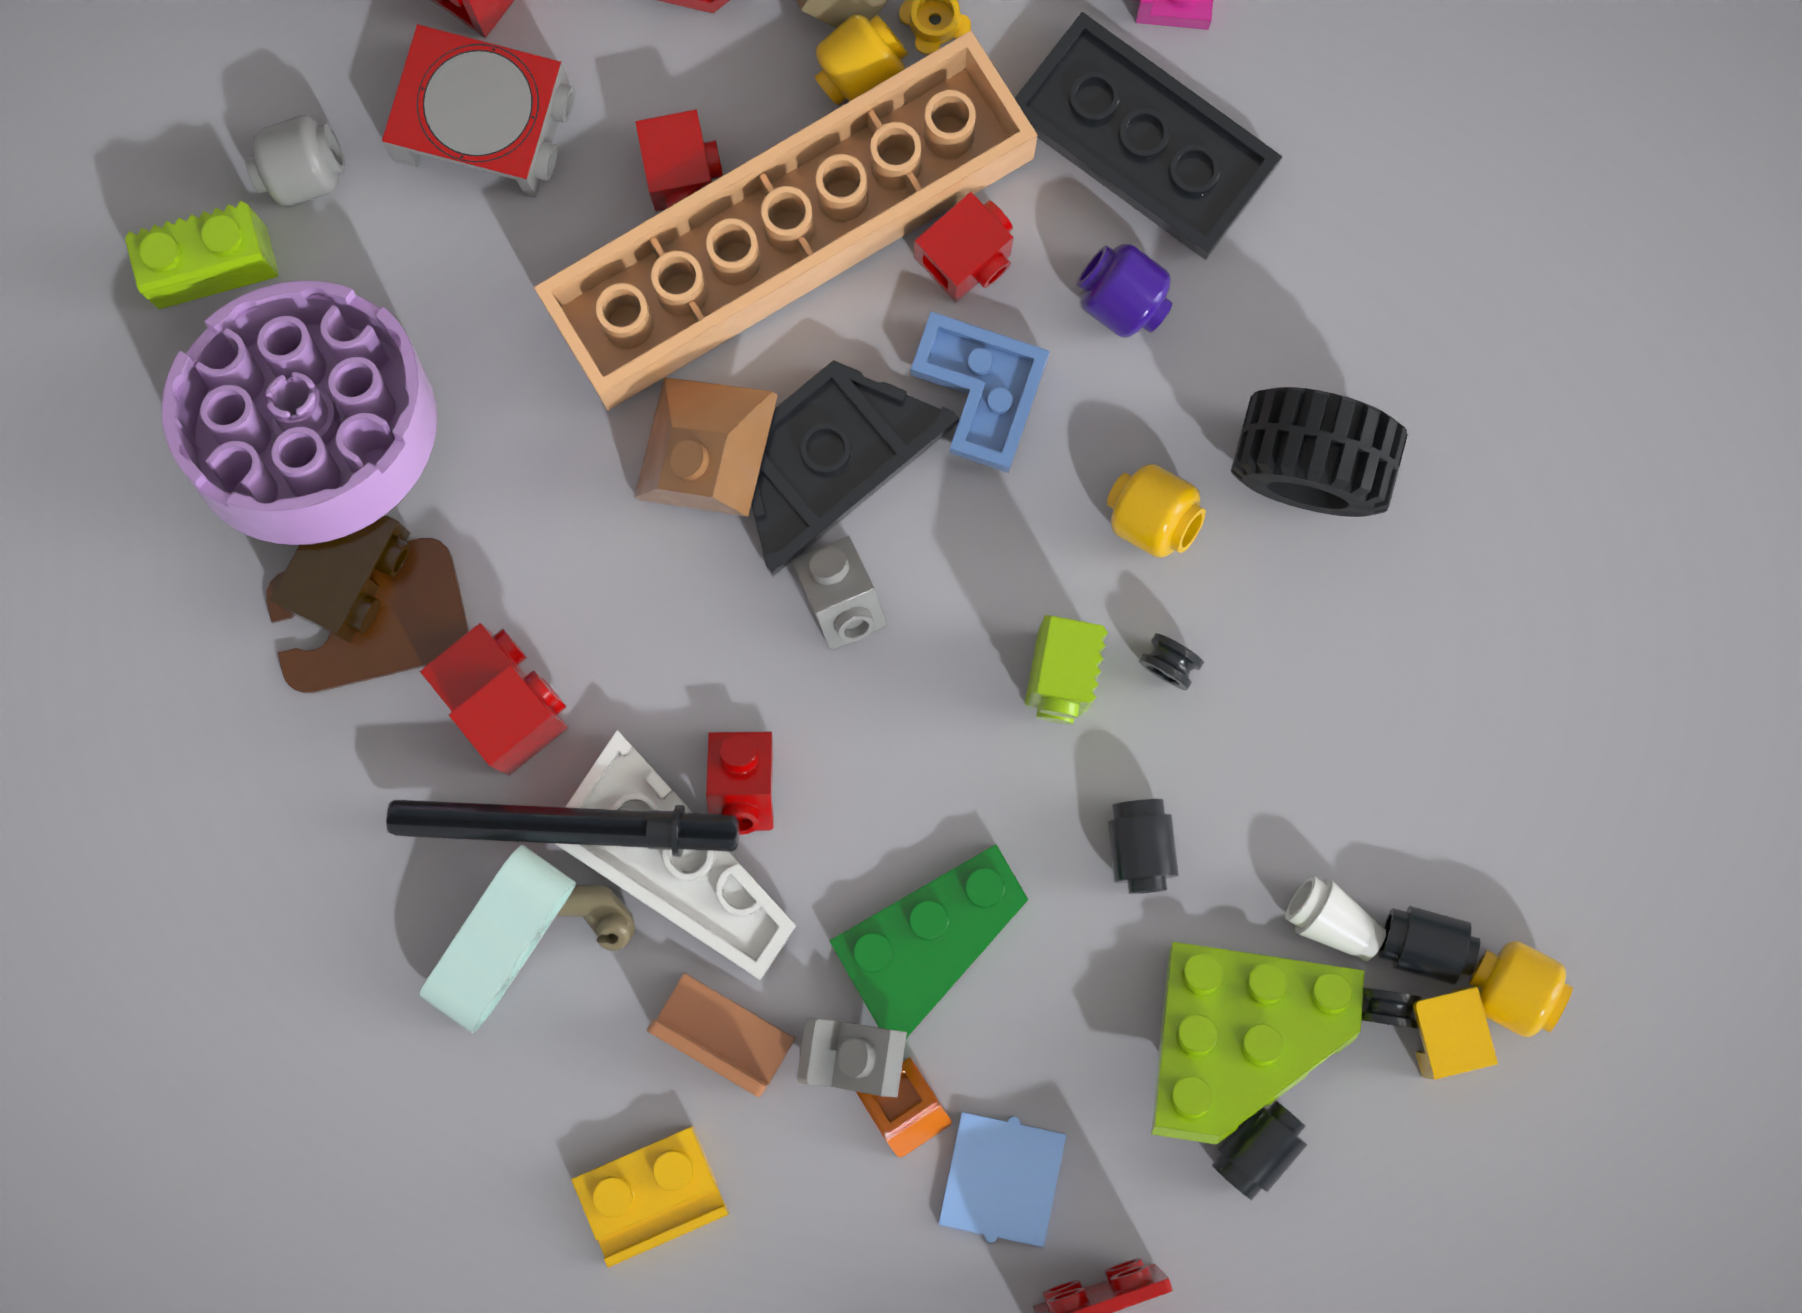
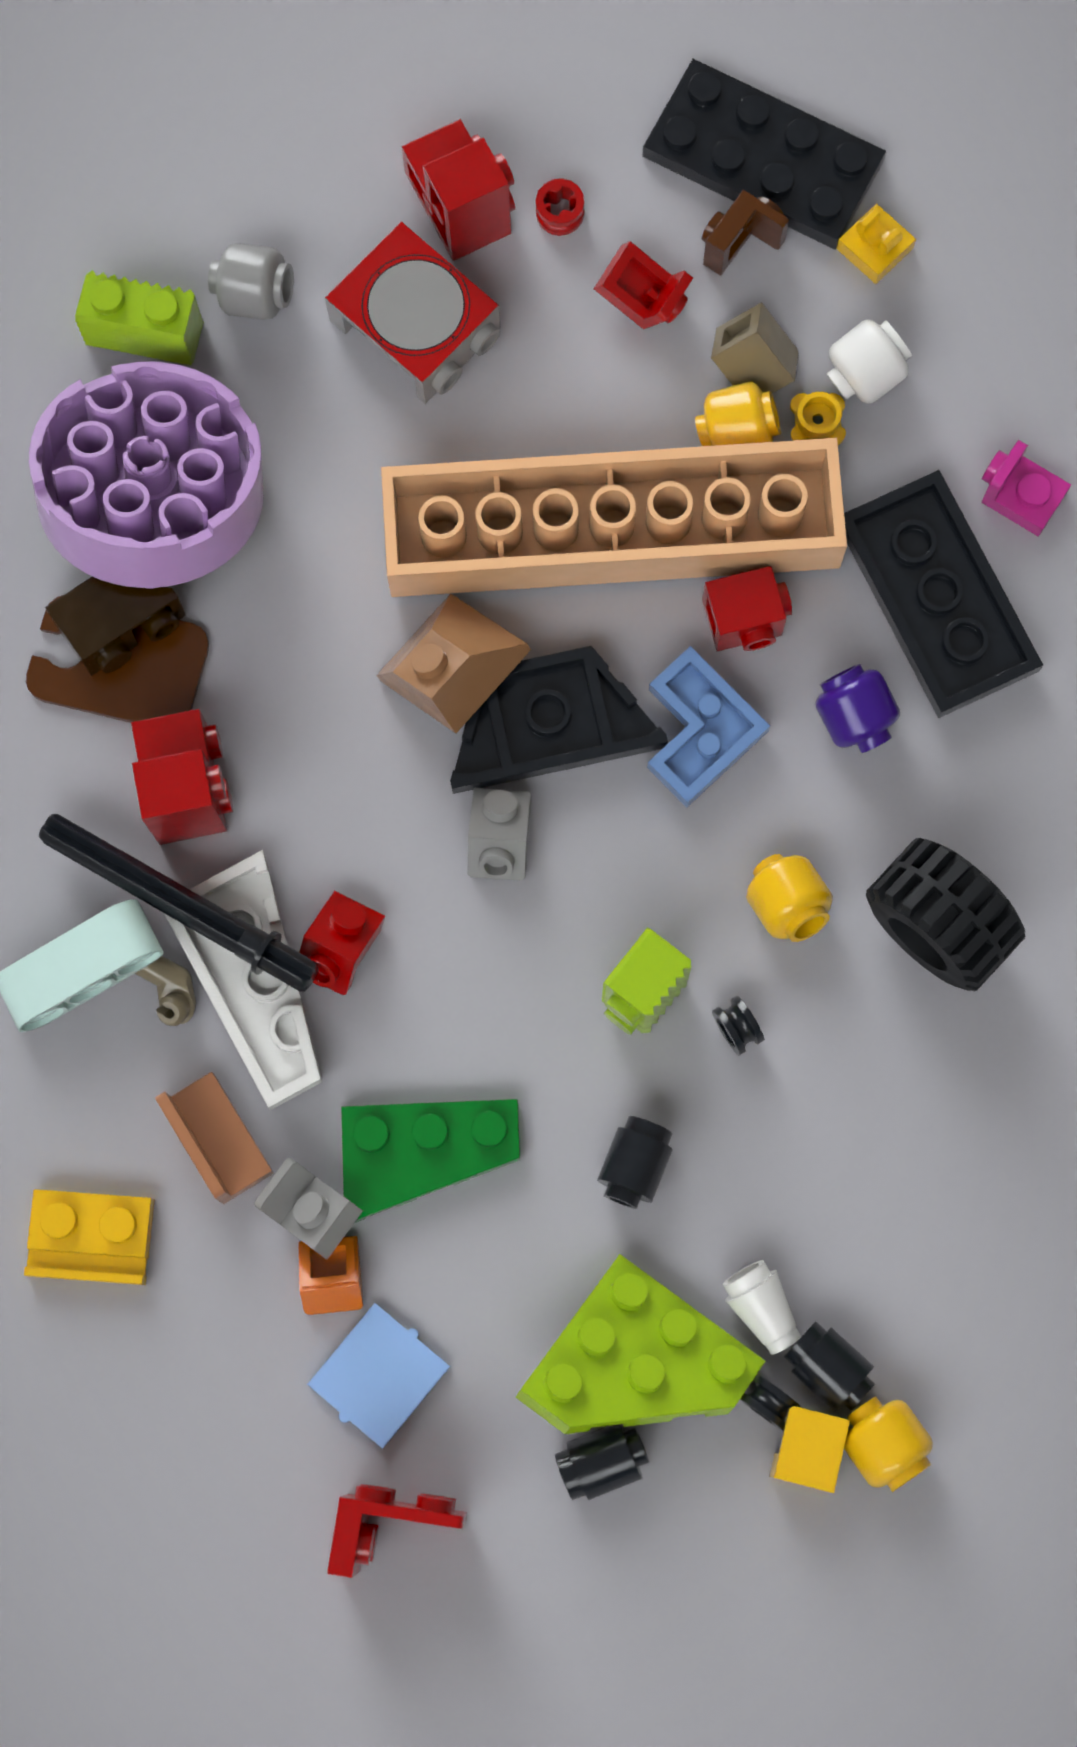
camera: 30 degrees right, 5 degrees down
(676, 157) = (551, 422): red brick -> none

